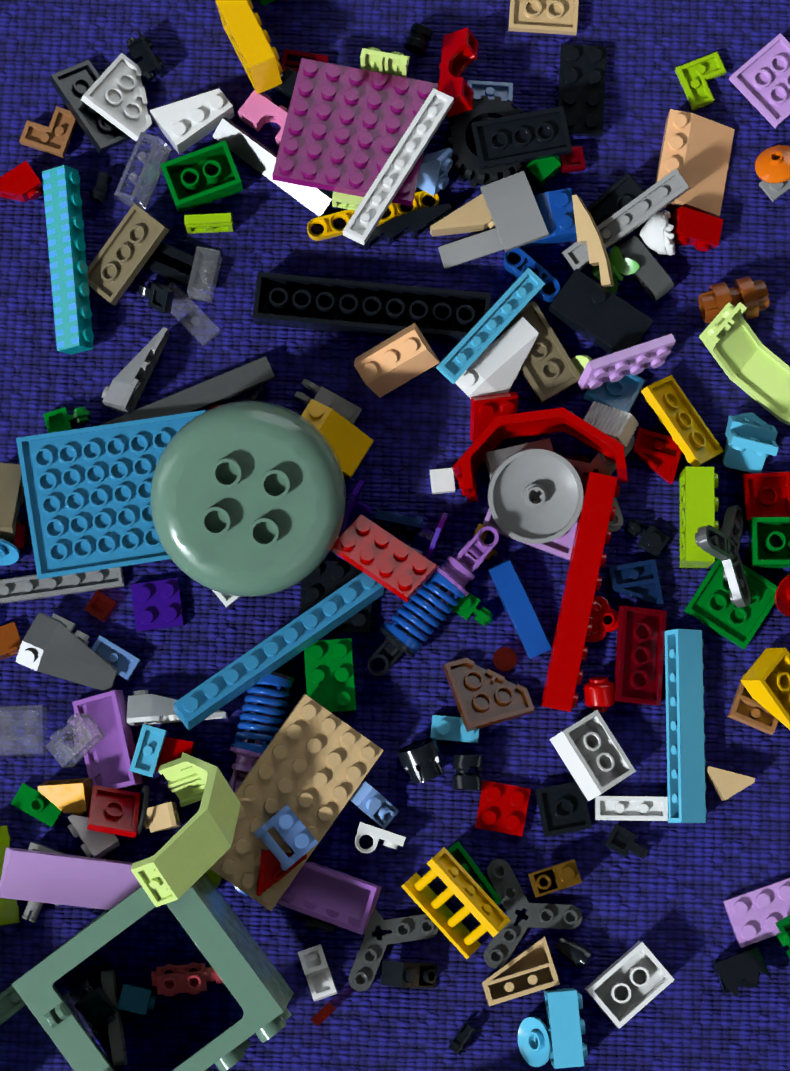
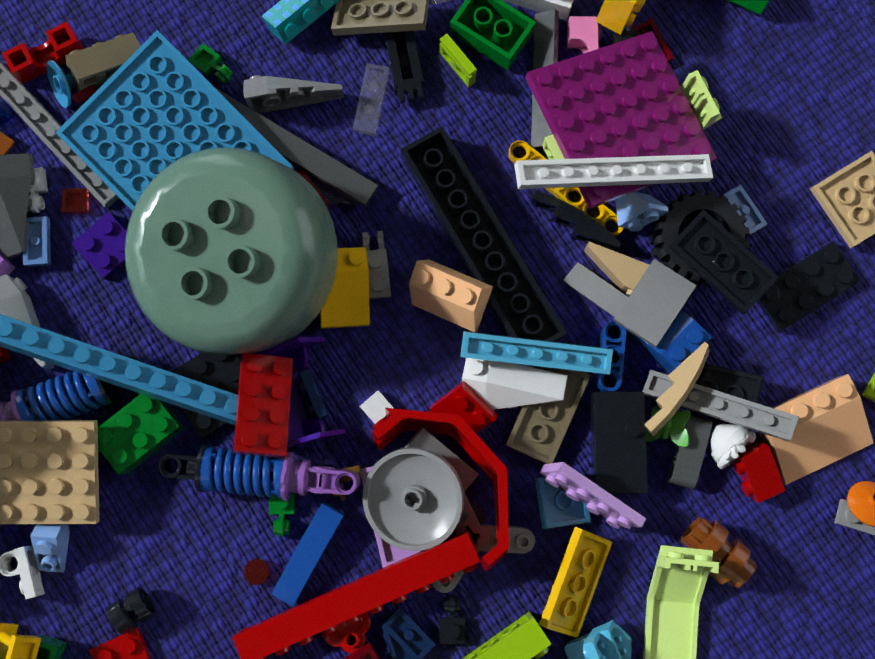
camera: 55 degrees right, 0 degrees up
(159, 296) = (366, 64): black plate -> none
(204, 274) = (408, 84): clear brick -> none
(418, 39) = (744, 120): black wheel -> none
(421, 760) = (115, 561): black piece -> none
(452, 729) = (166, 571): medium azure plate -> none
(457, 52) = (757, 158): red arch -> none
(485, 695) = (211, 577): reddish brown plate -> none
(542, 170) = (710, 302): green brick -> none
(574, 161) = (738, 323): dark red plate -> none
(580, 362) = (565, 454): yellowish green piece -> none
(612, 422) = (526, 519): white brick -> none
(658, 453) = (533, 579): red wing -> none

